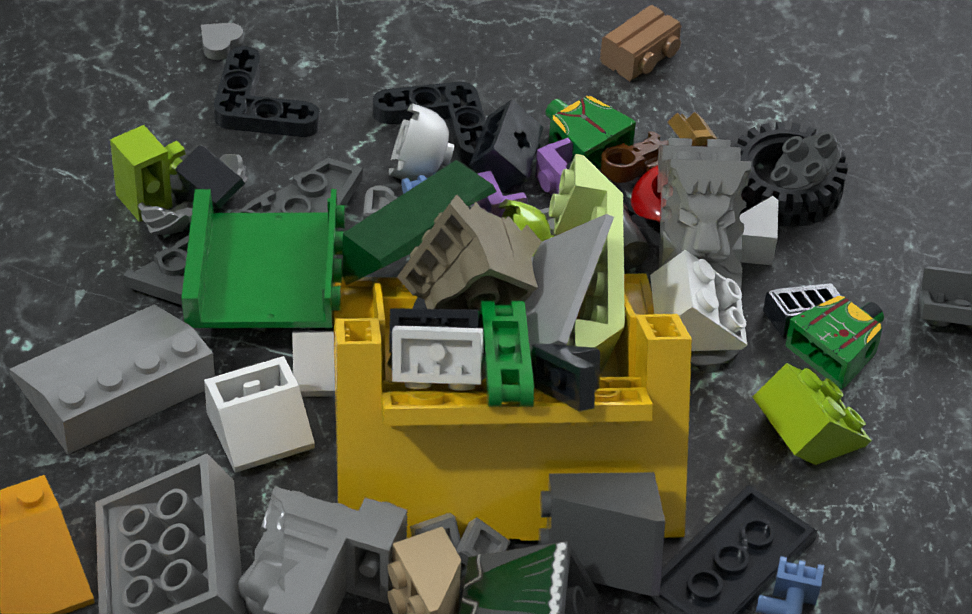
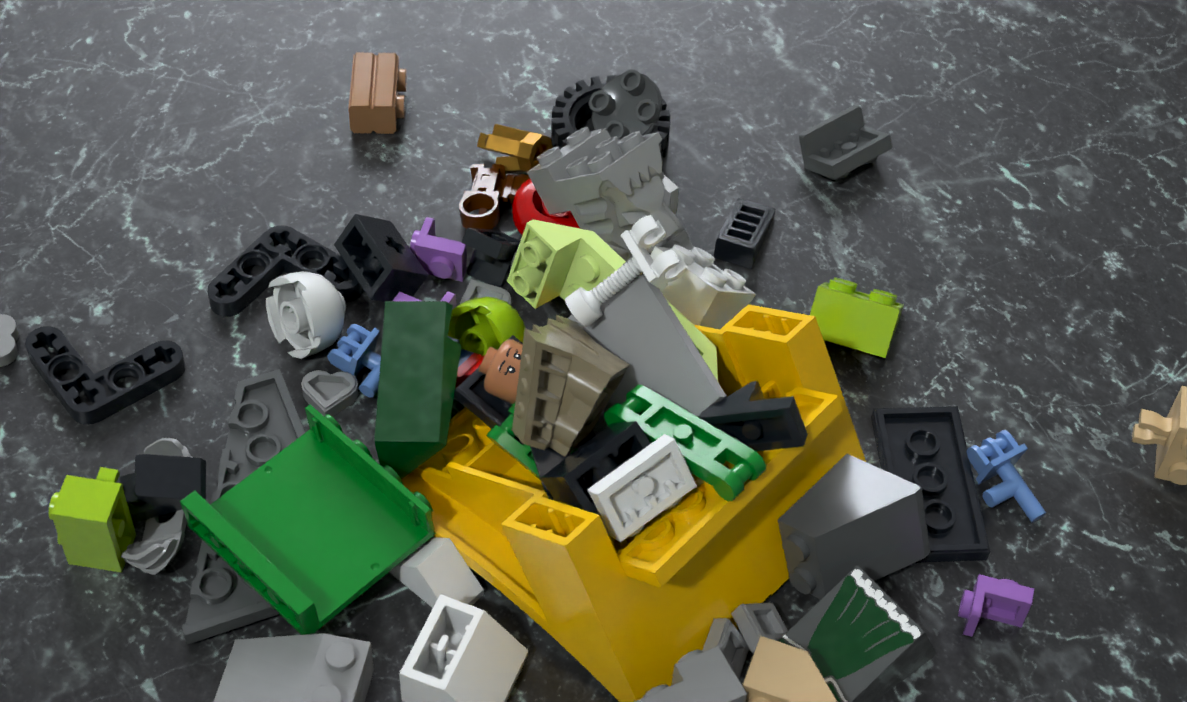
camera: 45 degrees left, 5 degrees up
(550, 229) = (664, 269): none -> white bar
(589, 127) = (423, 193): green torso -> none
(836, 338) = (801, 240): green torso -> none

